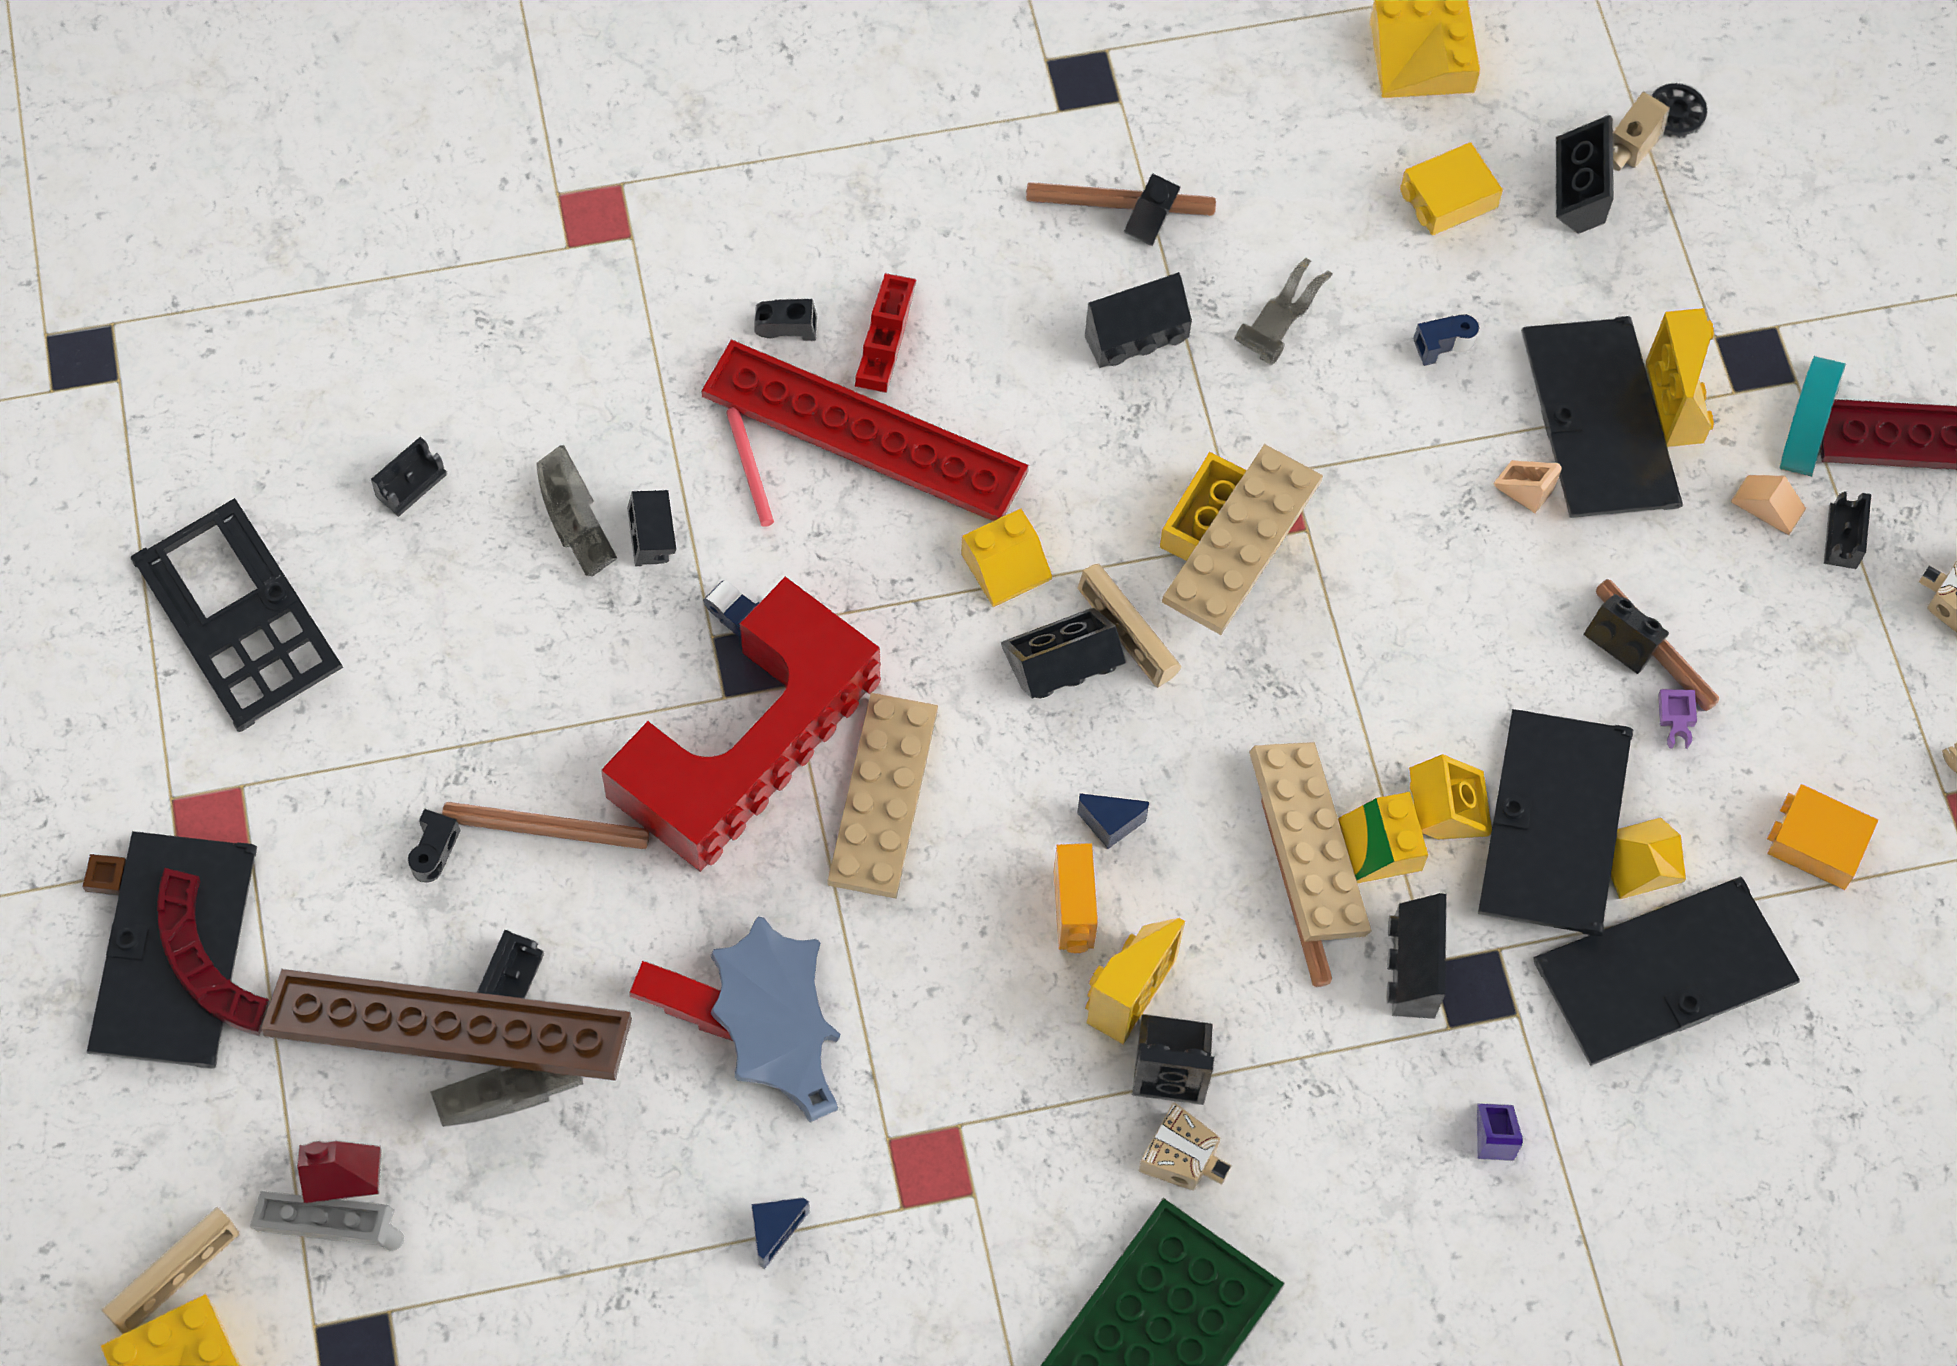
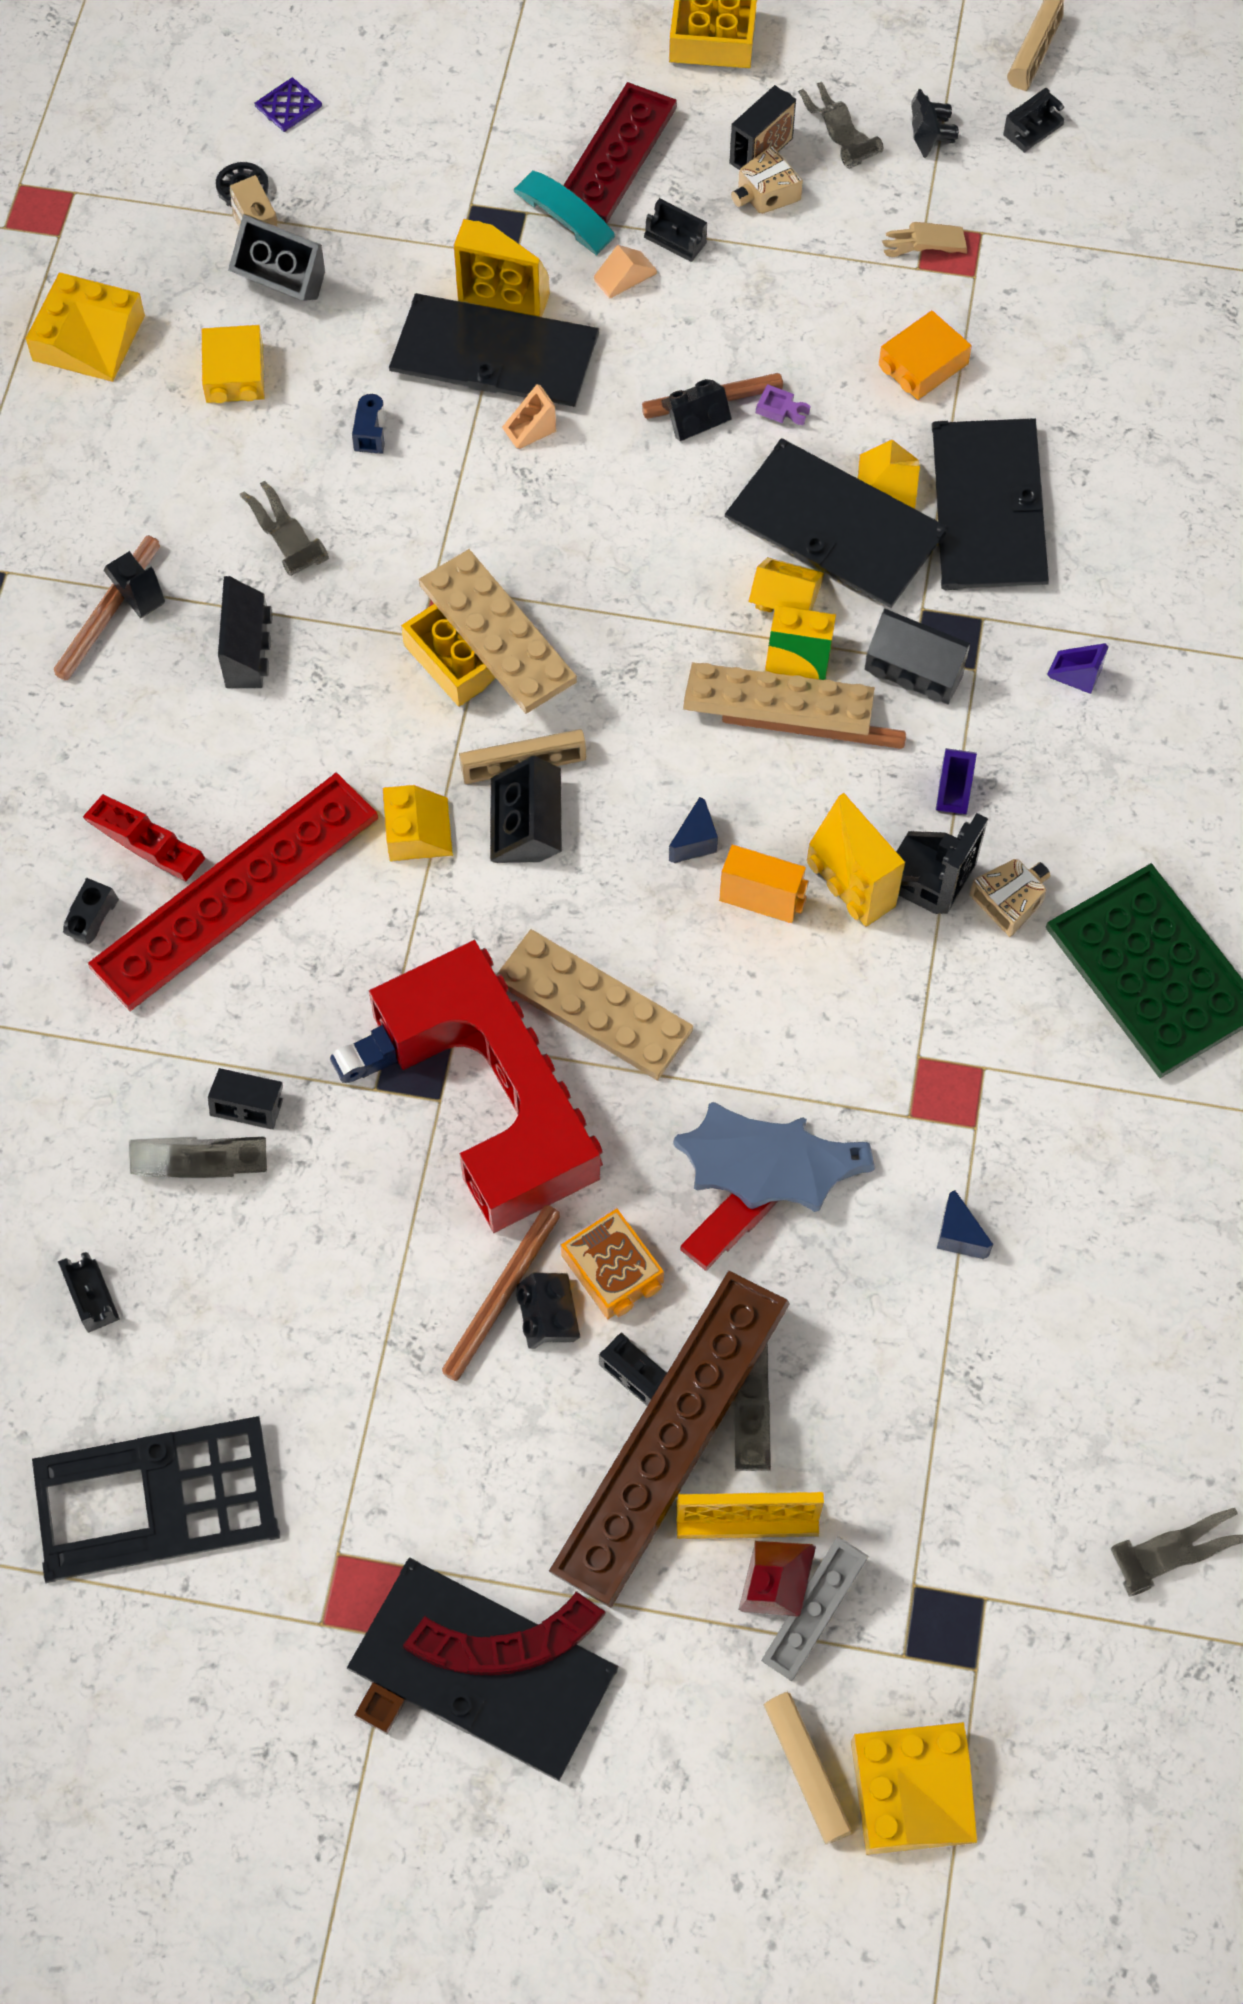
camera: 65 degrees left, 0 degrees up
(398, 1127) = (748, 1515): none -> yellow fence
(435, 846) = (482, 1393): black leg -> none
(542, 872) = (547, 1309): none -> black bracket
(608, 912) = (613, 1264): none -> brick
(750, 467) = (221, 997): coral bar -> none
(1290, 1050) = (955, 781): none -> dark purple slope
(1813, 94) = (297, 116): none -> dark purple window

